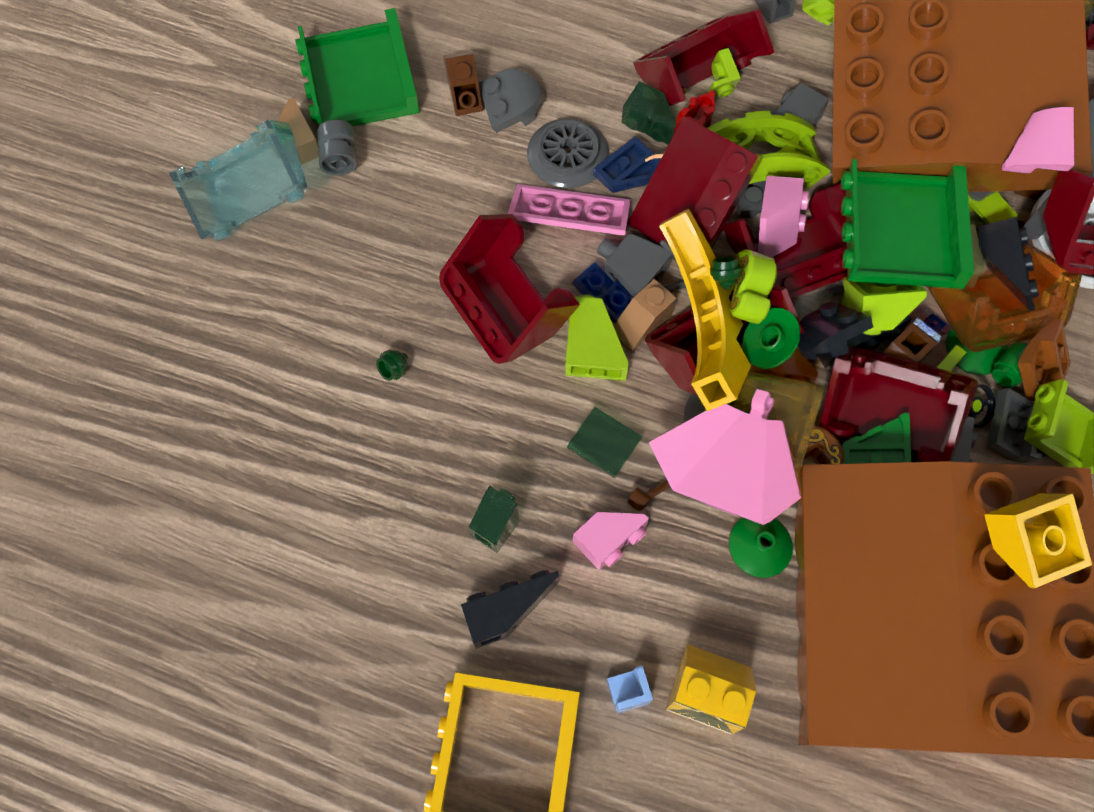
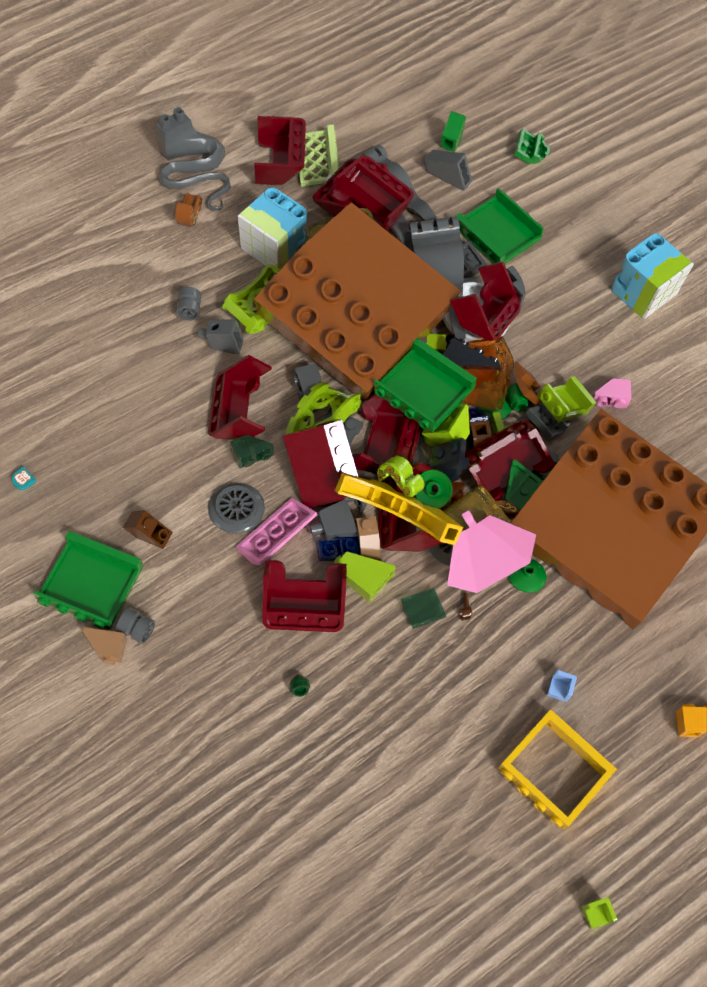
camera: 60 degrees left, 5 degrees down
(243, 181) = (120, 690): clear light blue windscreen -> none
(495, 518) = (432, 689): clear green slope -> none
(500, 613) = (482, 723): black slope -> none
(510, 98) = (179, 512): dark grey slope -> none
(608, 534) = (476, 642): bright pink slope -> none
(627, 167) = (274, 483): dark blue wing -> none
(699, 111) = (274, 433): red animal -> none
(713, 690) = (588, 646): yellow slope -> none
(725, 73) = (257, 397): lime bracket -> none
(726, 271) = (387, 481): dark green plate -> none
(781, 214) = (367, 434): bright pink slope -> none
(1040, 538) = (623, 452): yellow slope -> none
(1044, 142) = (435, 298): bright pink slope -> none

